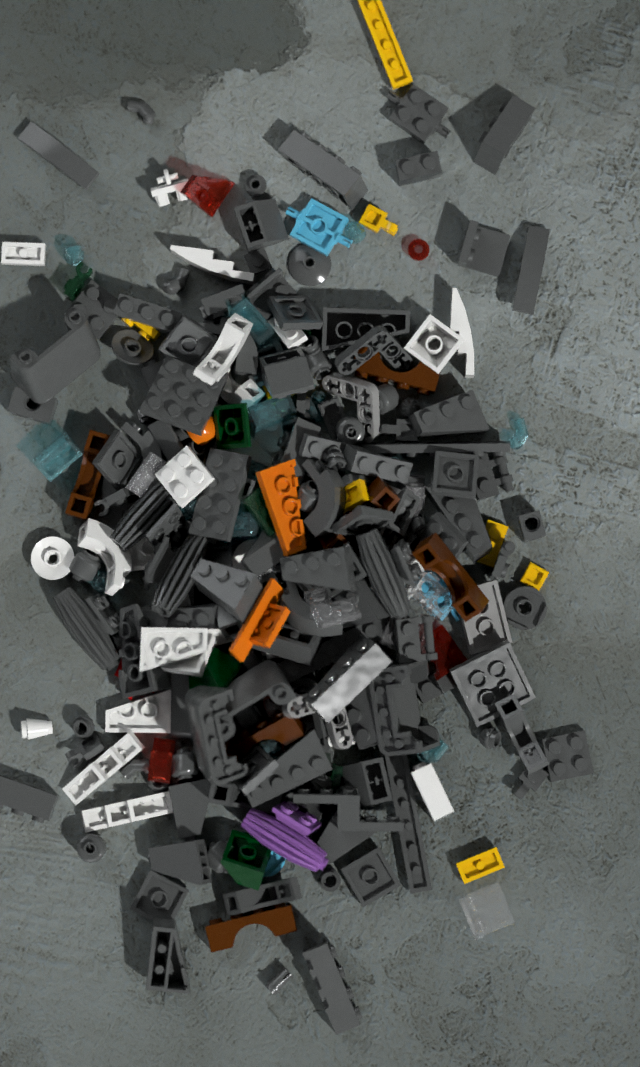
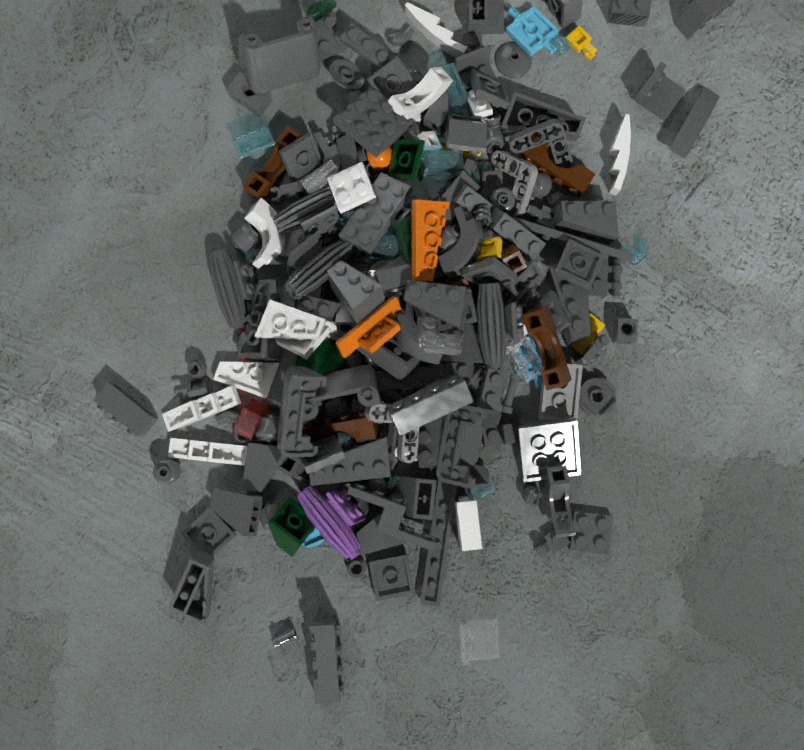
camera: 15 degrees right, 0 degrees up
(35, 728) = (157, 356): white cone -> none
(41, 558) = (216, 215): white dish -> none
(145, 331) = (362, 64): yellow plate -> none
(216, 305) = (432, 57): dark grey plate -> none
(223, 933) = (301, 585): reddish brown arch -> none
(268, 894) = (302, 562): dark grey arch -> none
(418, 256) = (606, 81): clear red plate -> none
(434, 344) = (596, 152): white slope -> none
(448, 652) = (521, 412): clear red wing -> none
(480, 865) = (487, 599): yellow plate -> none
(534, 576) = (612, 373): yellow tile -> none

